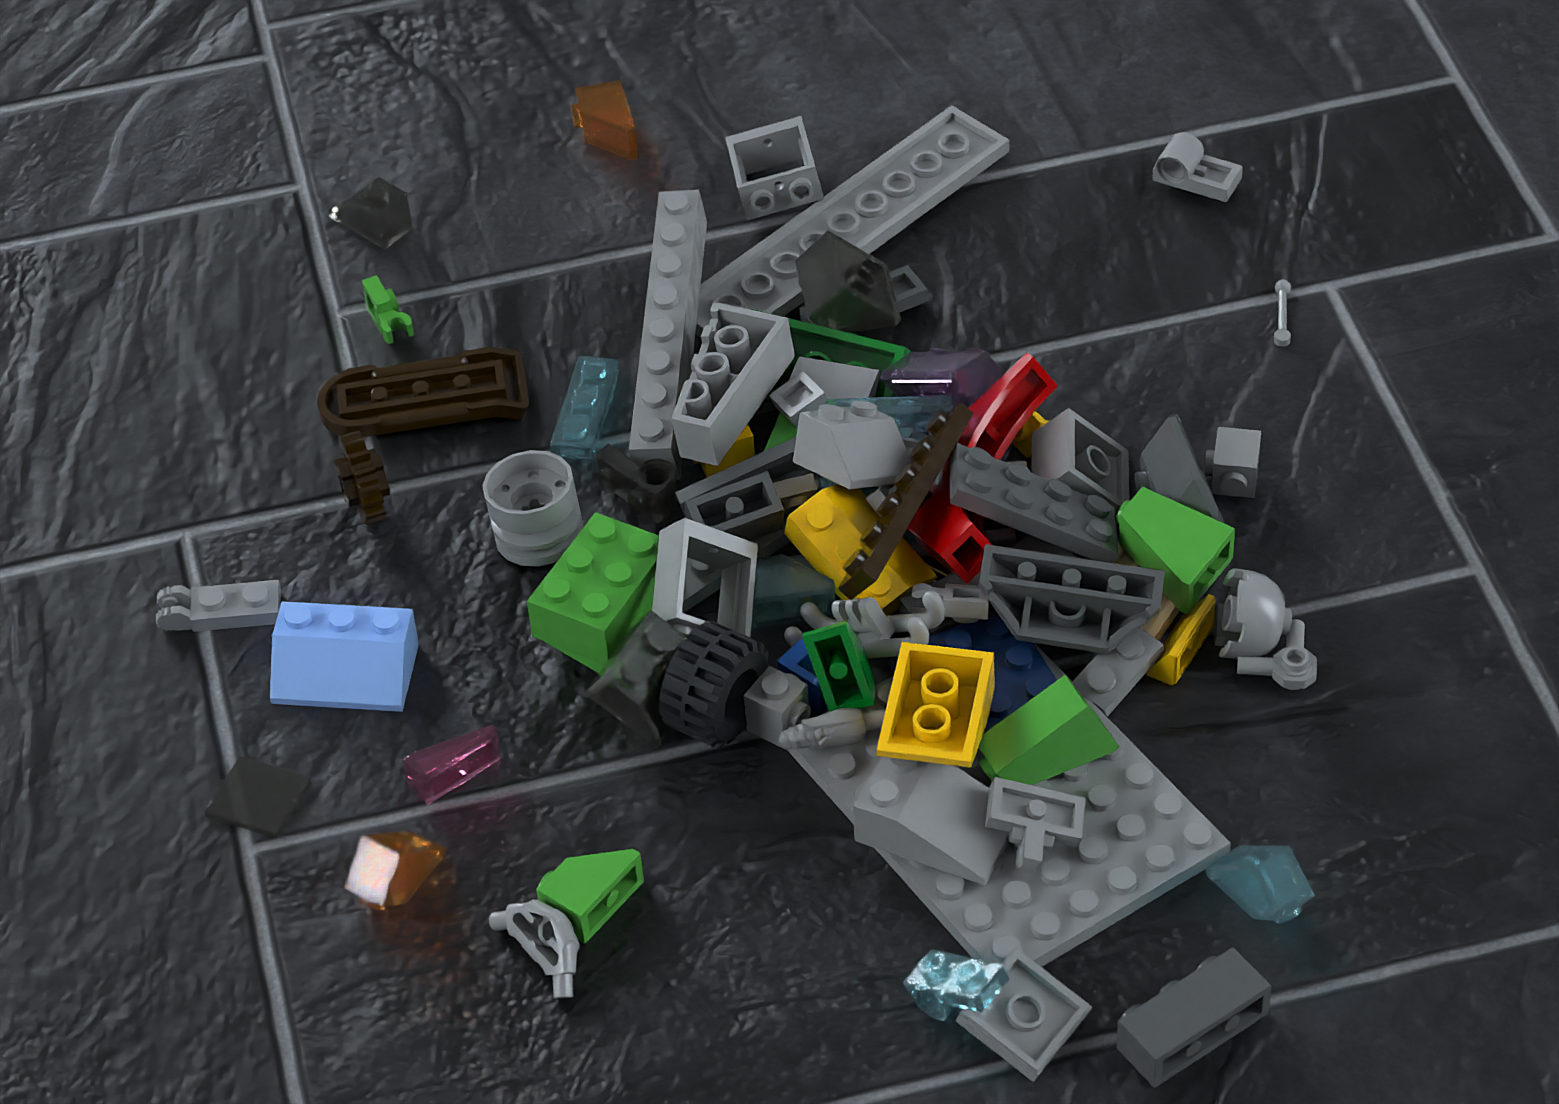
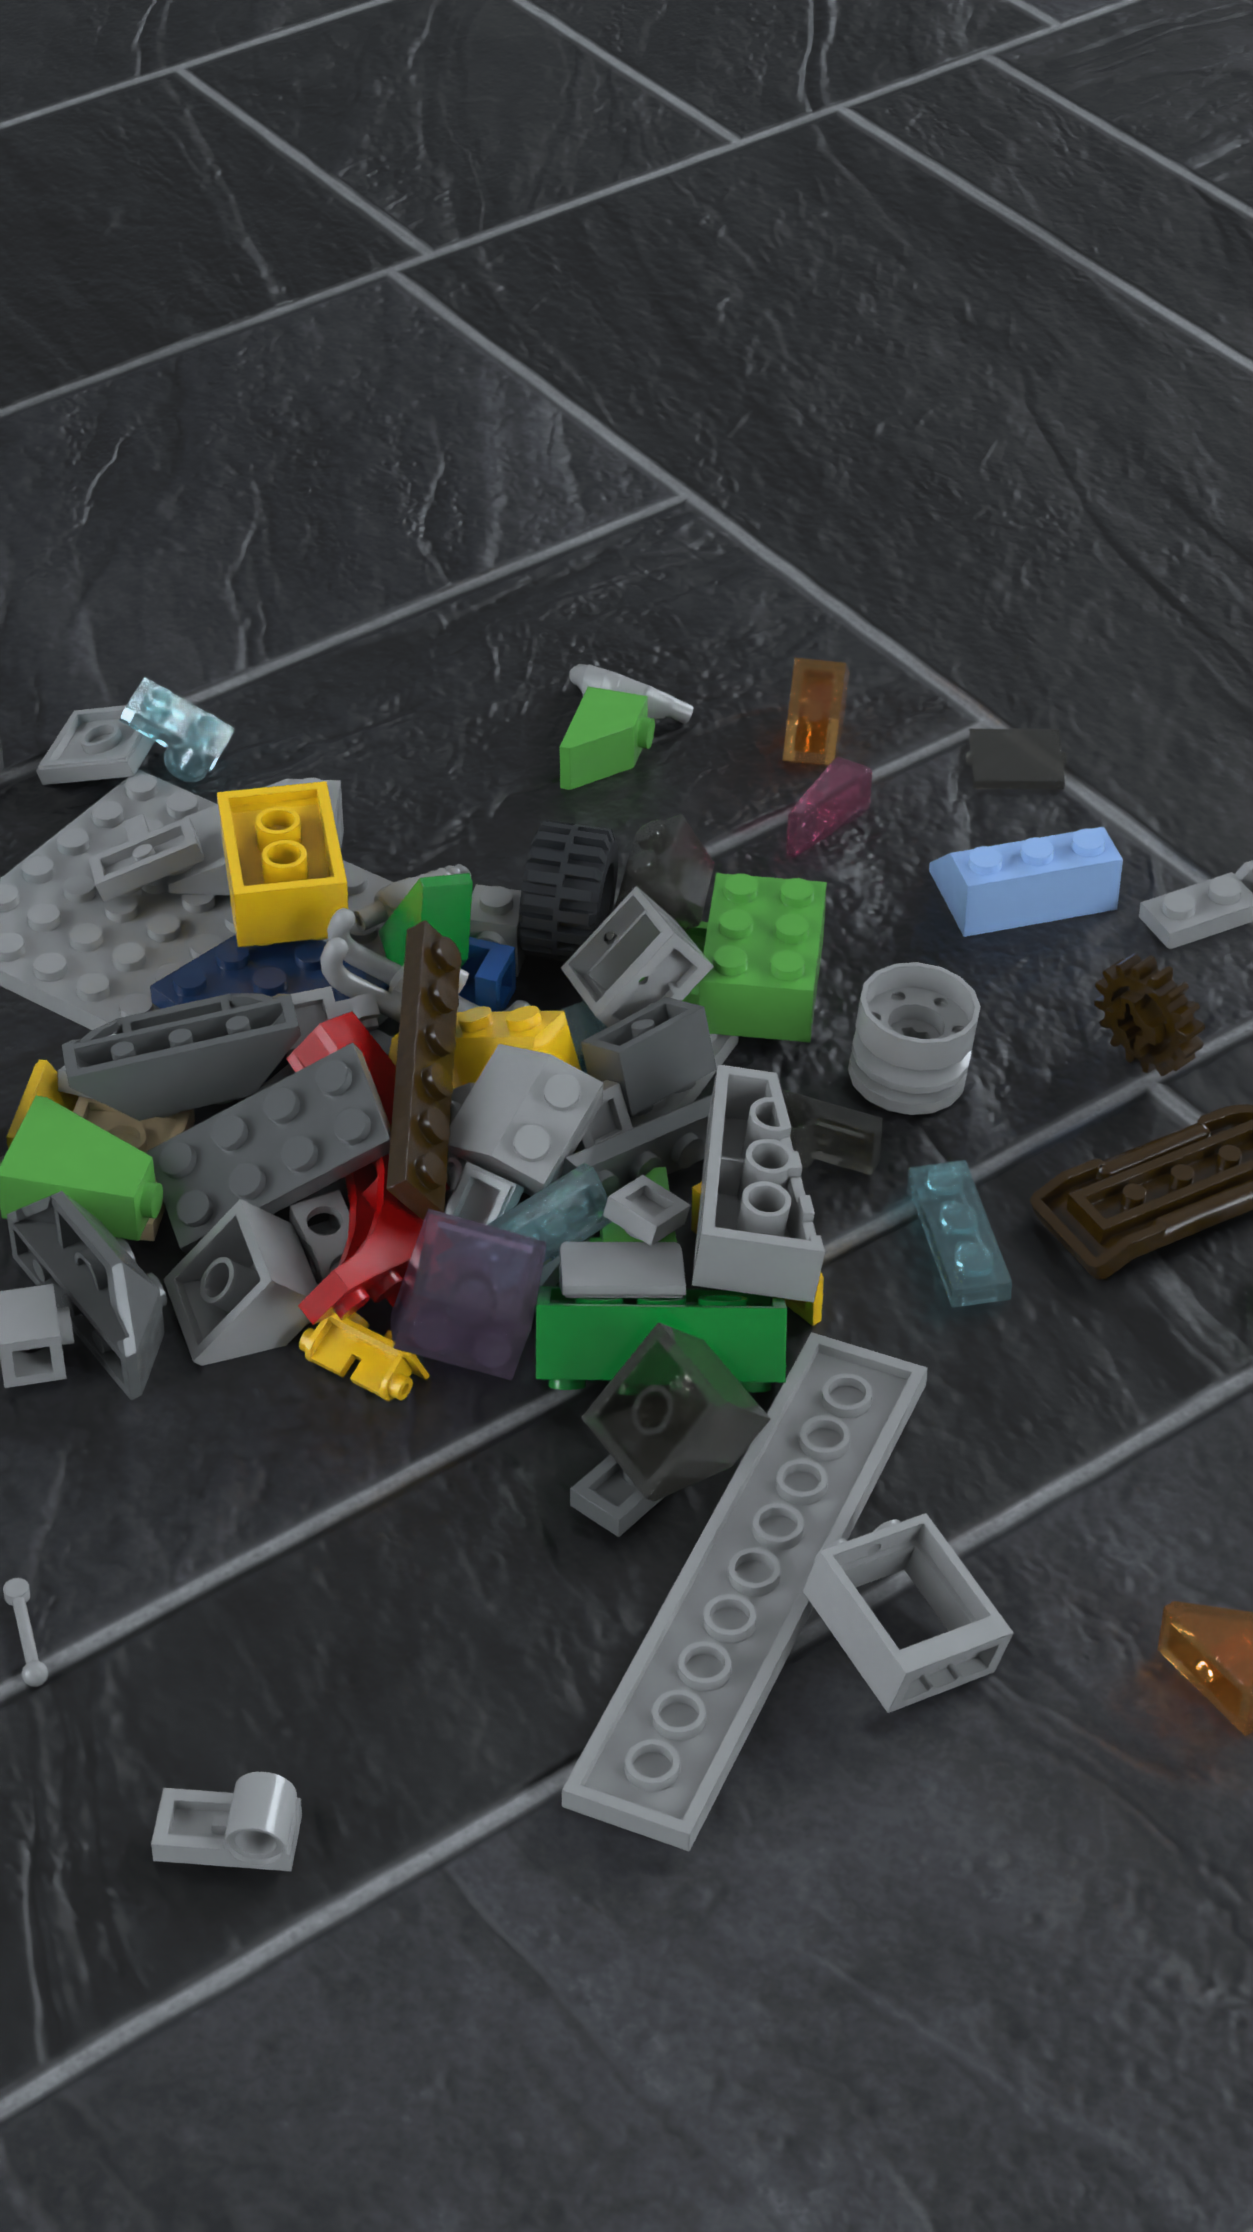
camera: 155 degrees right, 5 degrees down
(668, 325) = (903, 1306): light grey brick -> none
(1045, 737) = (153, 924): bright green slope -> none

